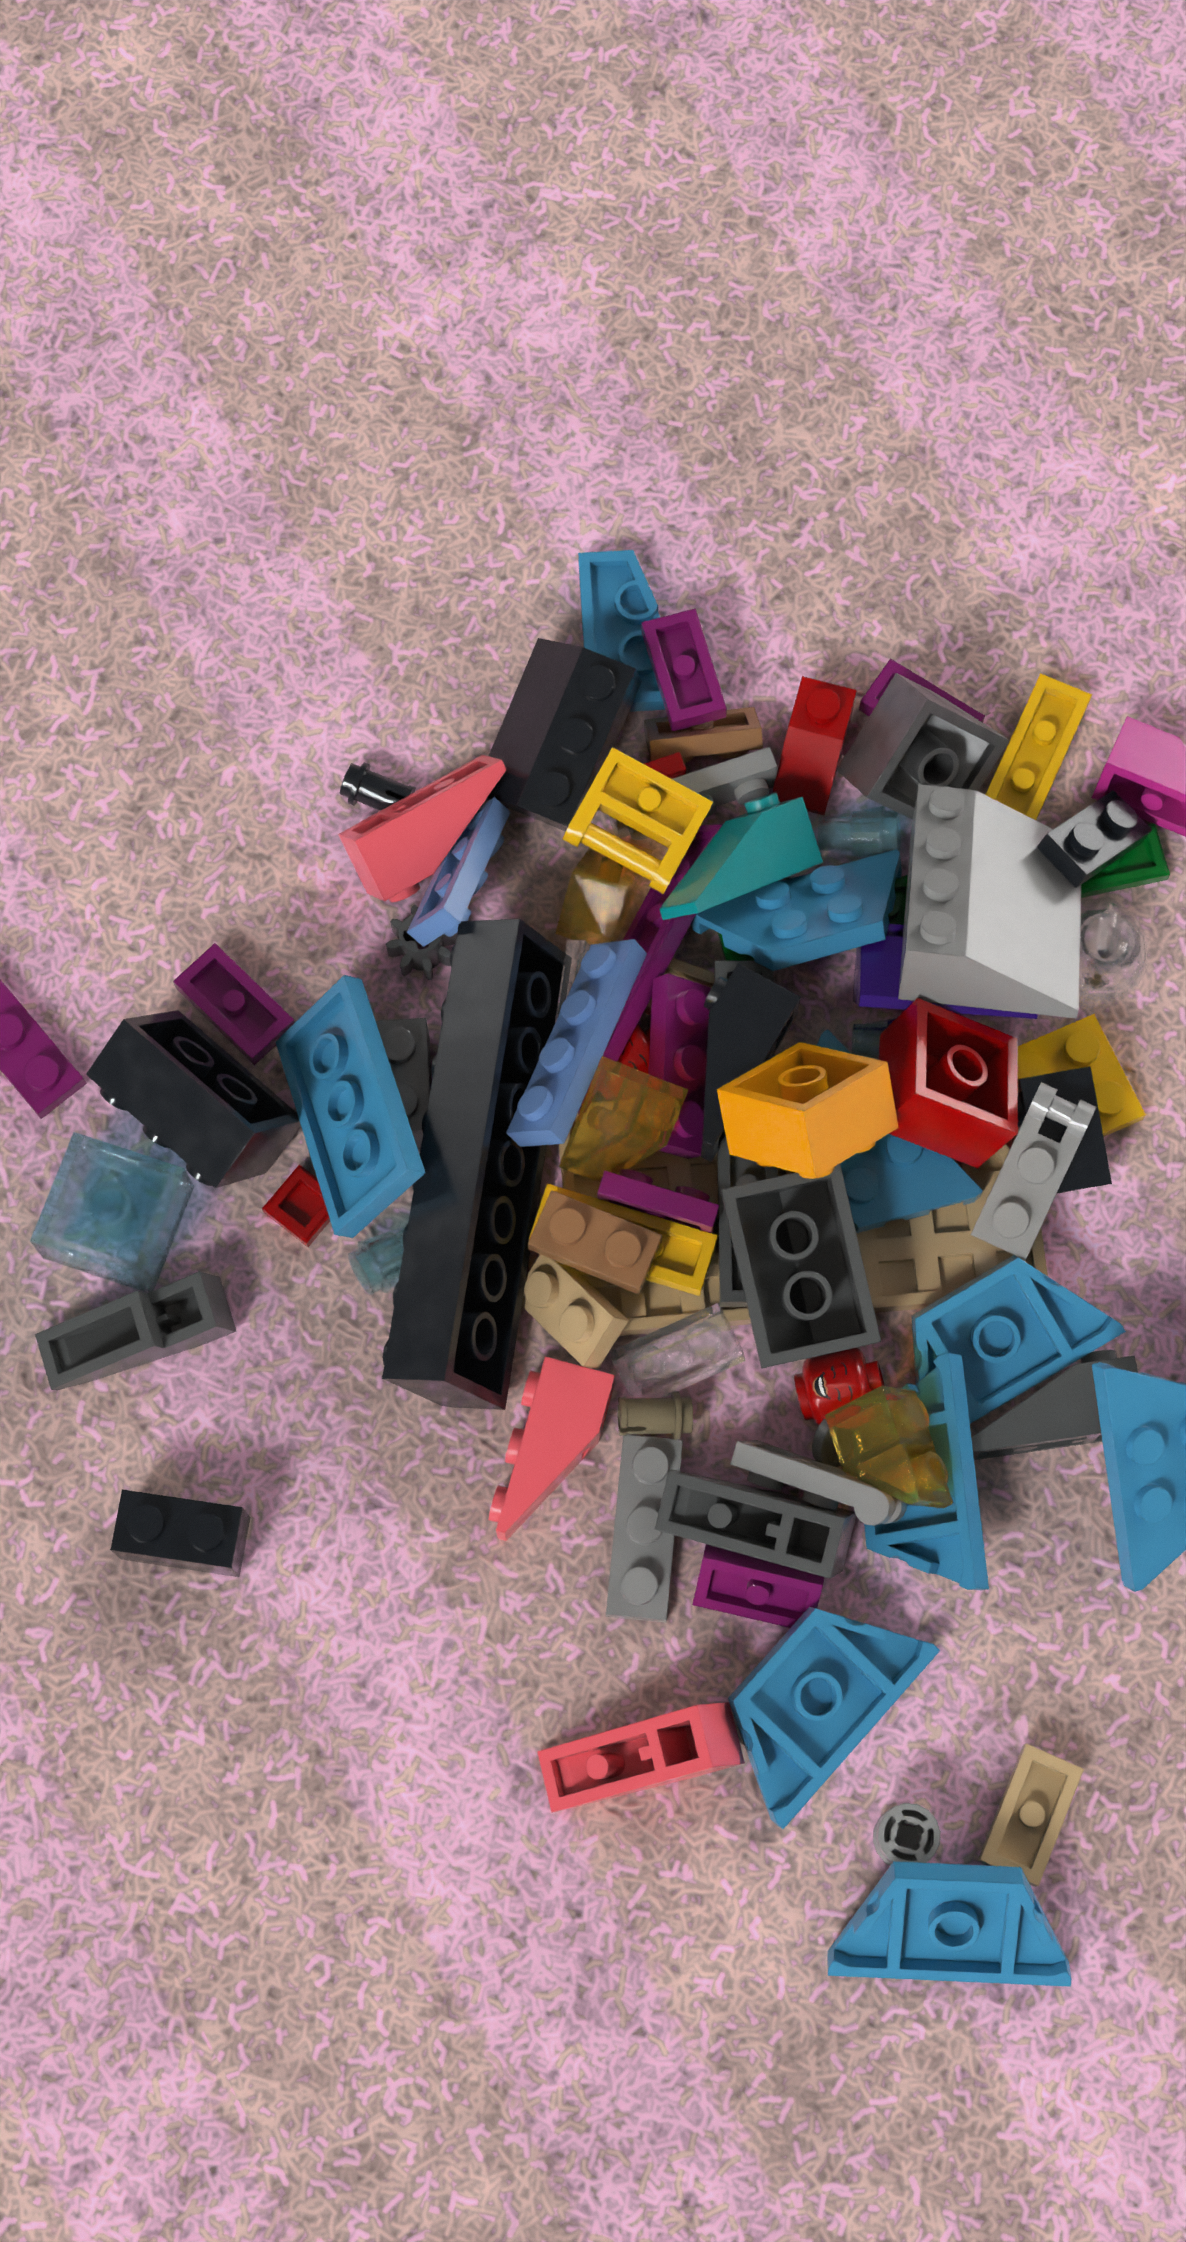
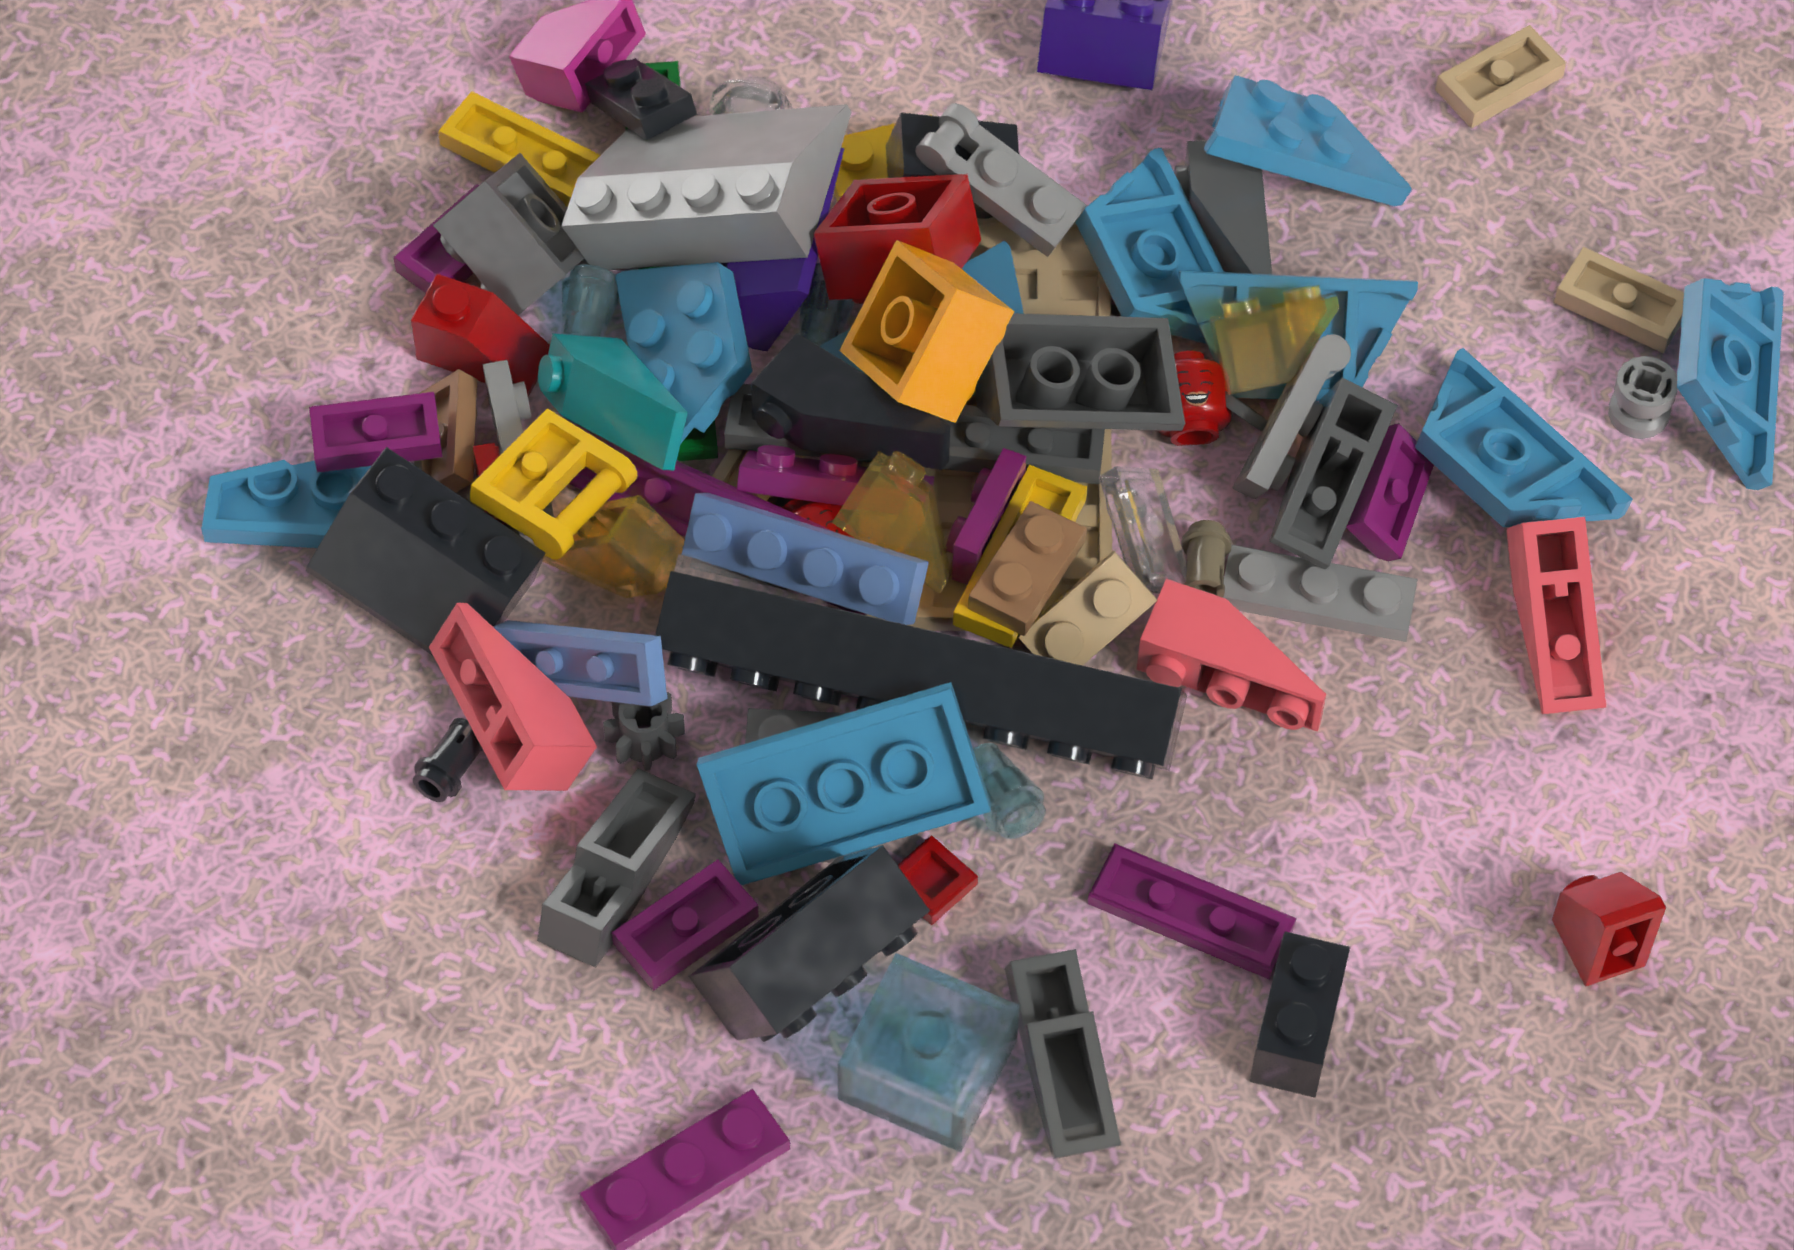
camera: 85 degrees left, 15 degrees down
(285, 937) = (614, 867): none -> dark grey slope
(293, 1435) = (1191, 910): none -> magenta tile
(295, 1809) = (1608, 924): none -> red slope

